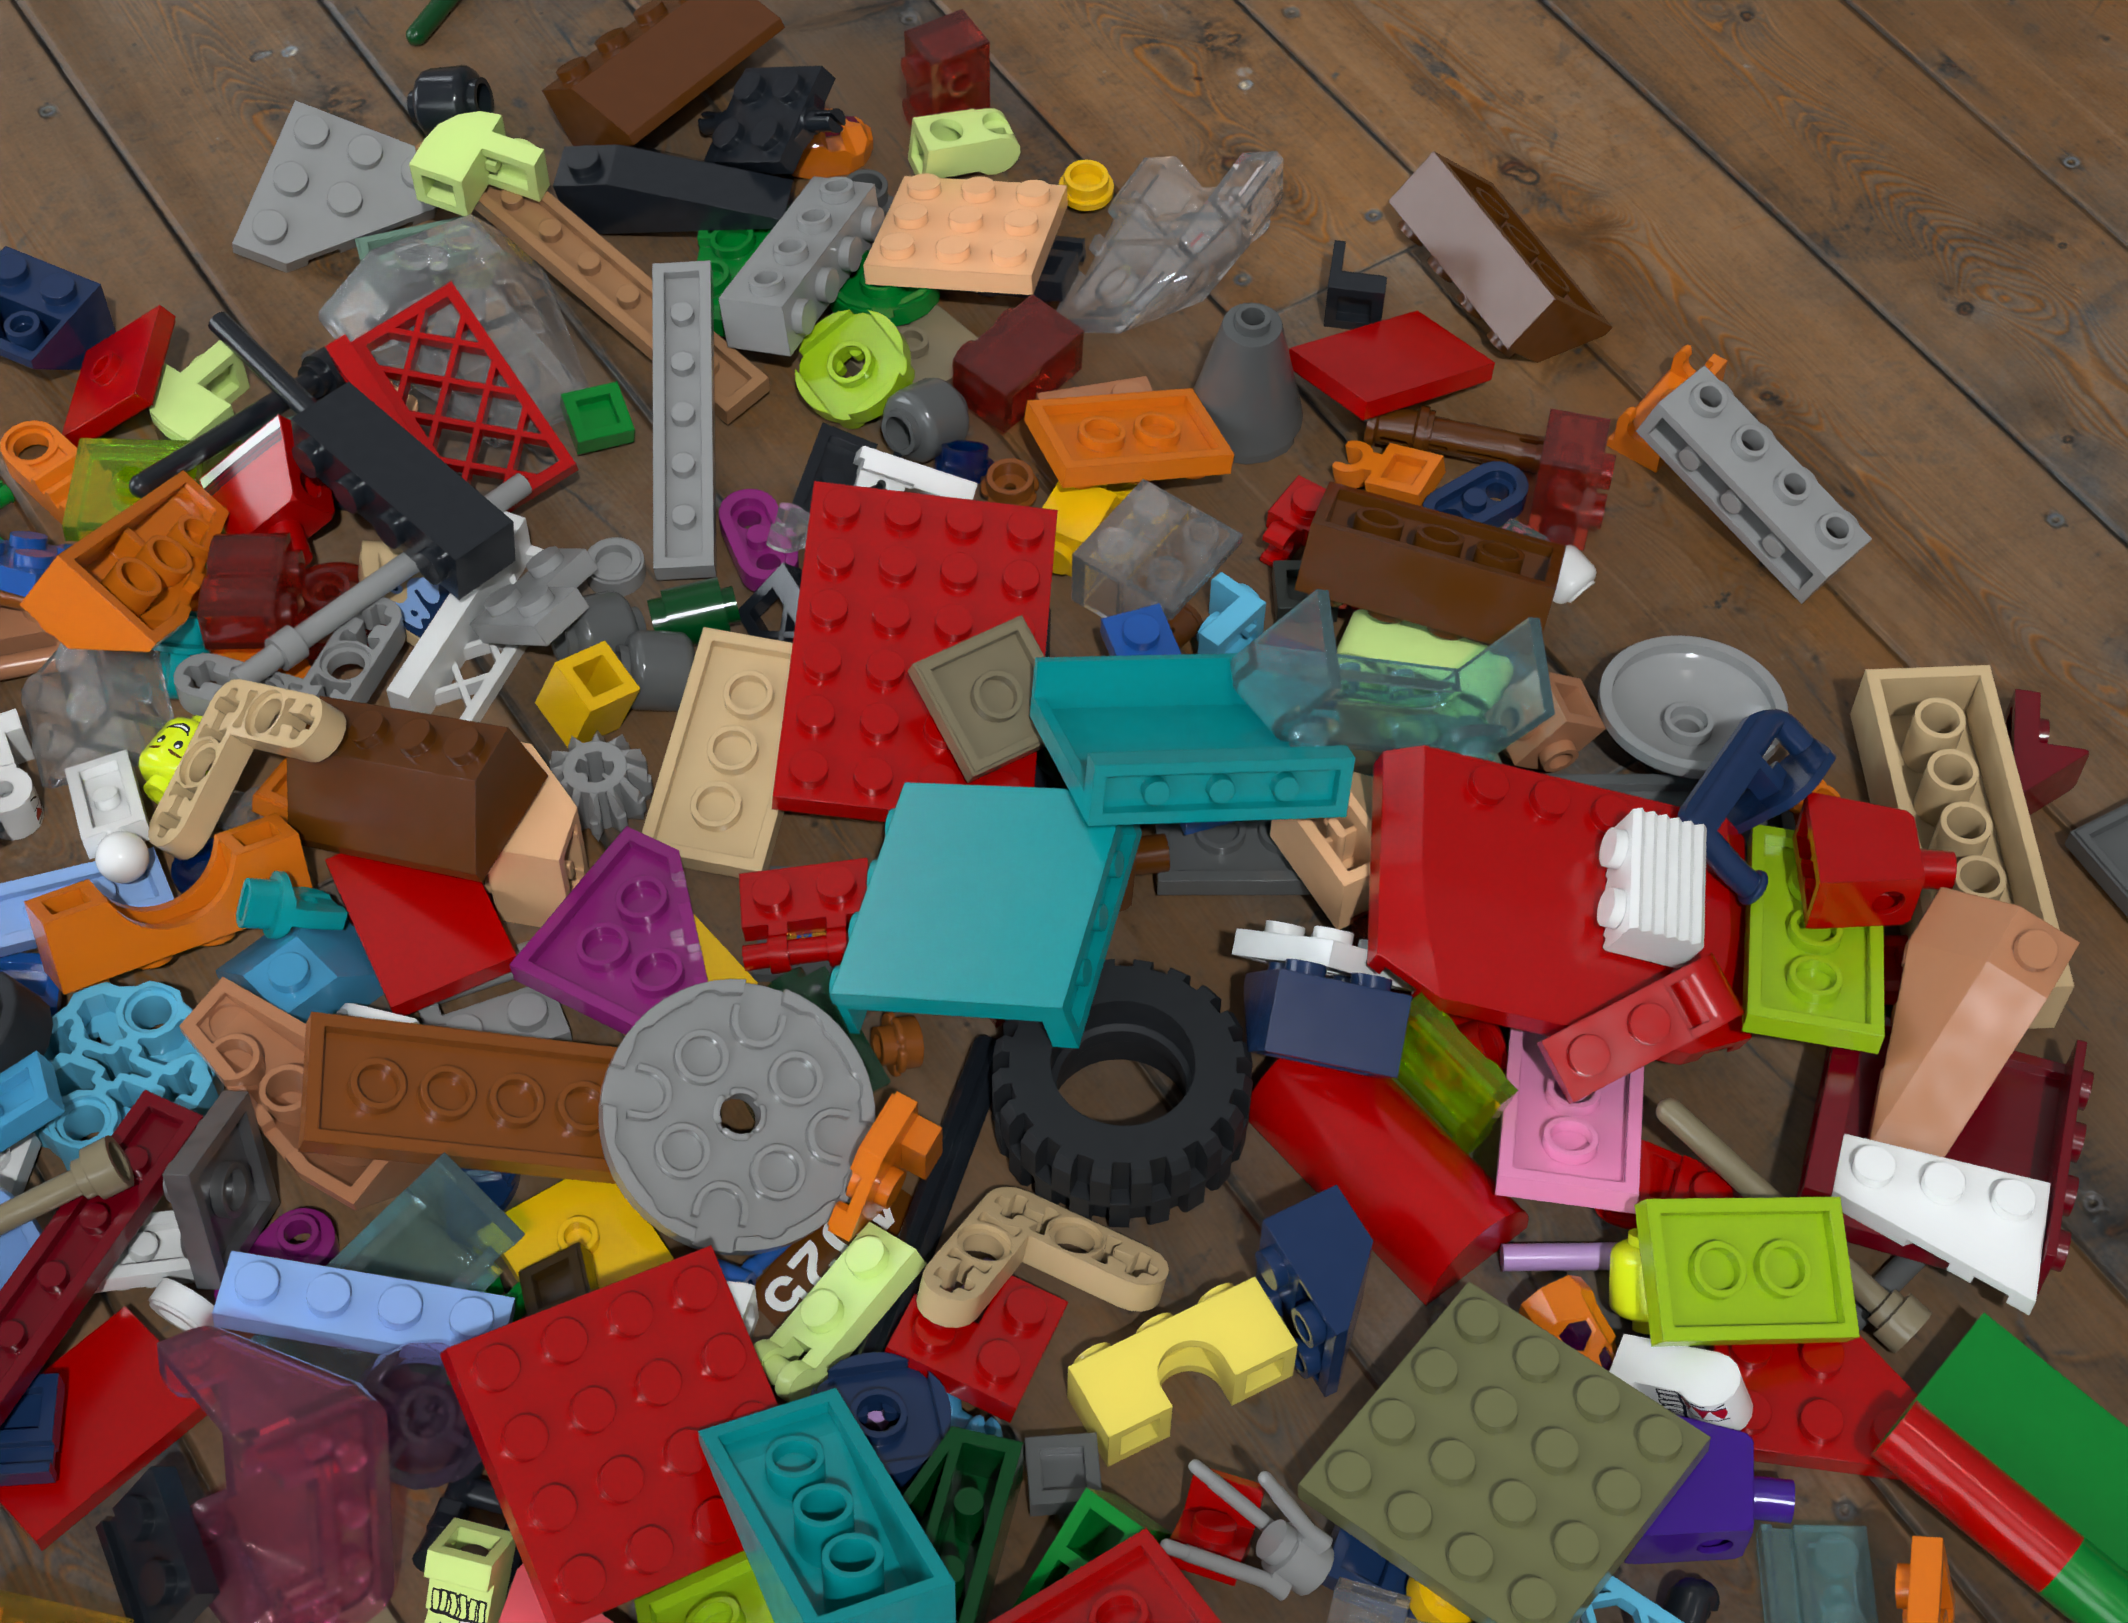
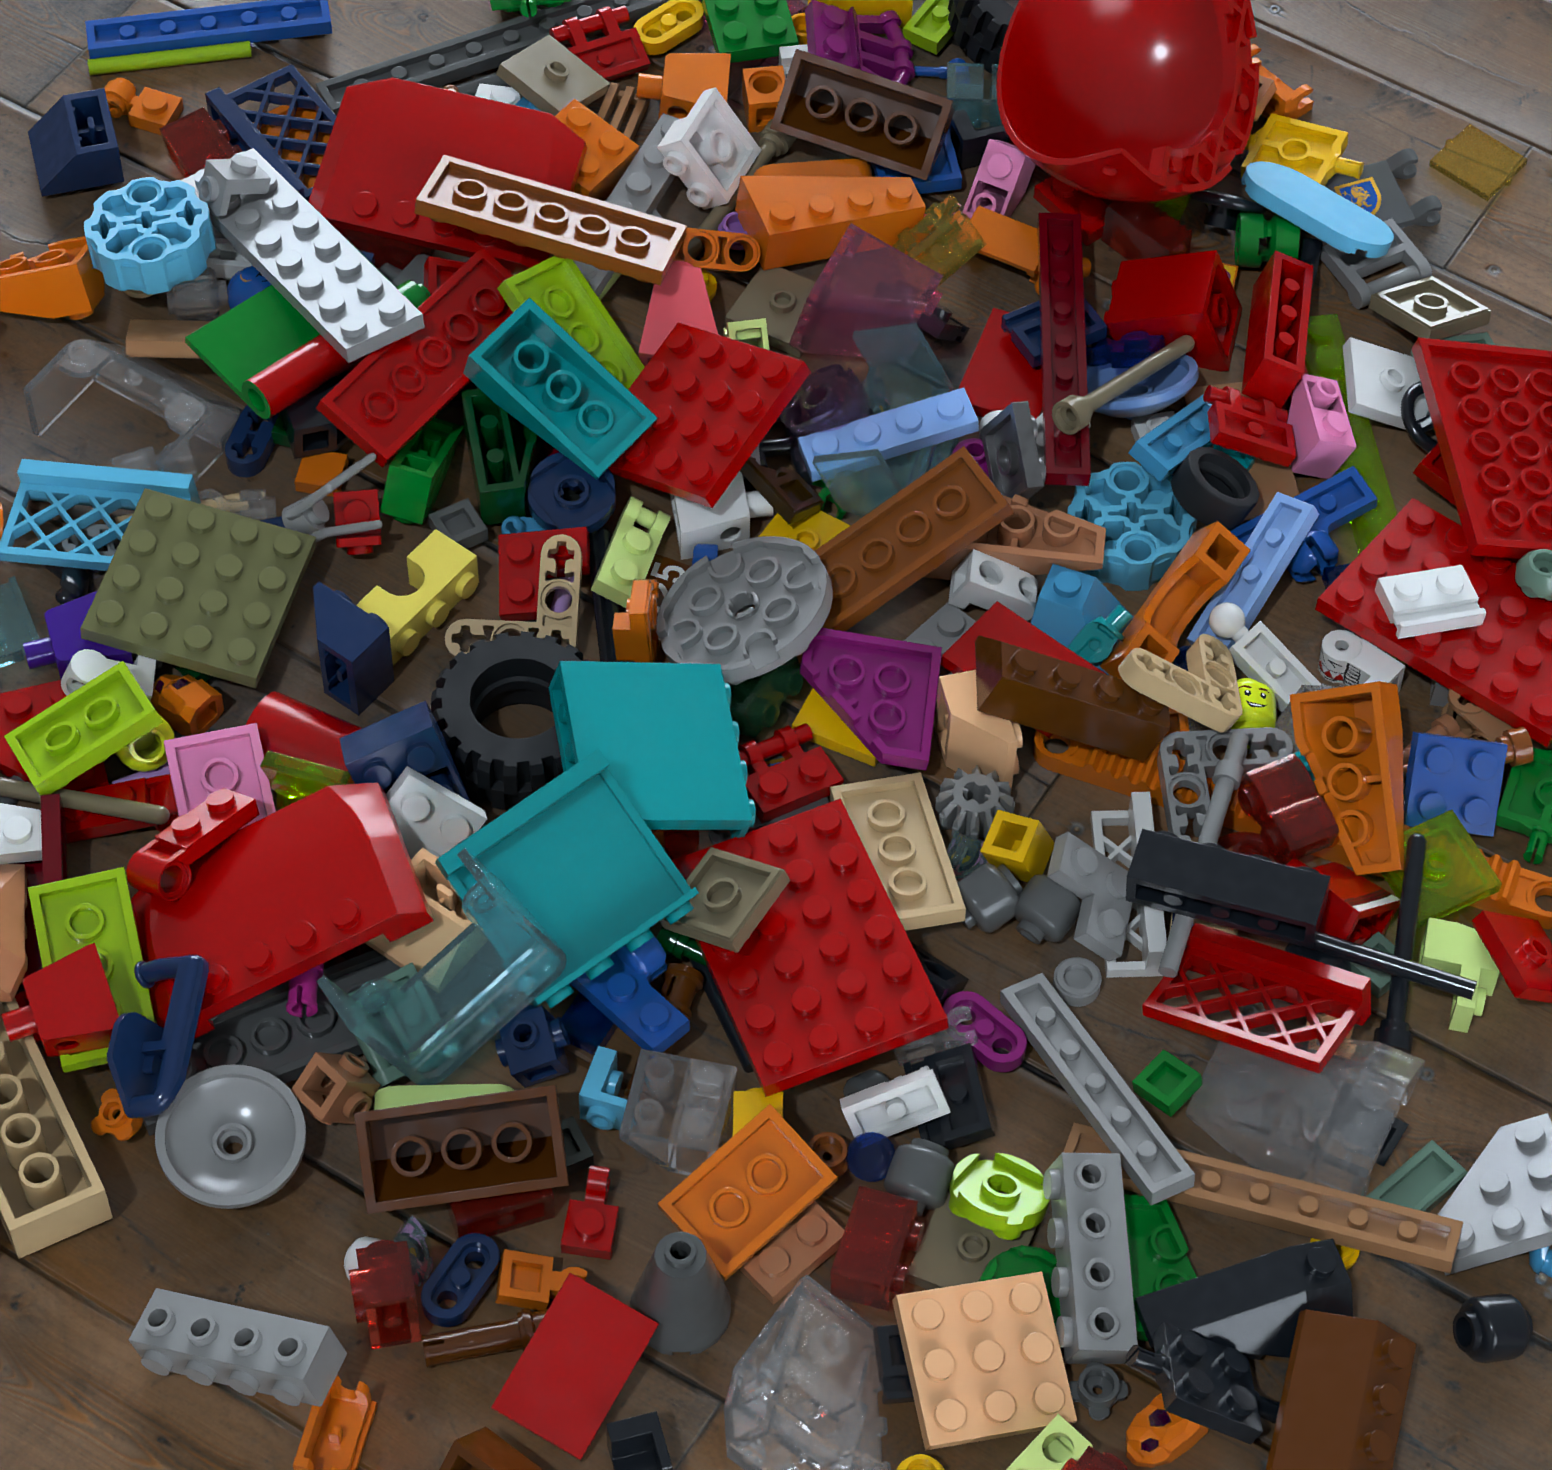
camera: 155 degrees right, 0 degrees up
(469, 155) = (1397, 1207): yellowish green brick -> none
(642, 731) = (965, 854): none -> clear light blue tile
(694, 606) = (991, 950): dark green brick -> none
(1654, 888) = (209, 905): white brick -> none

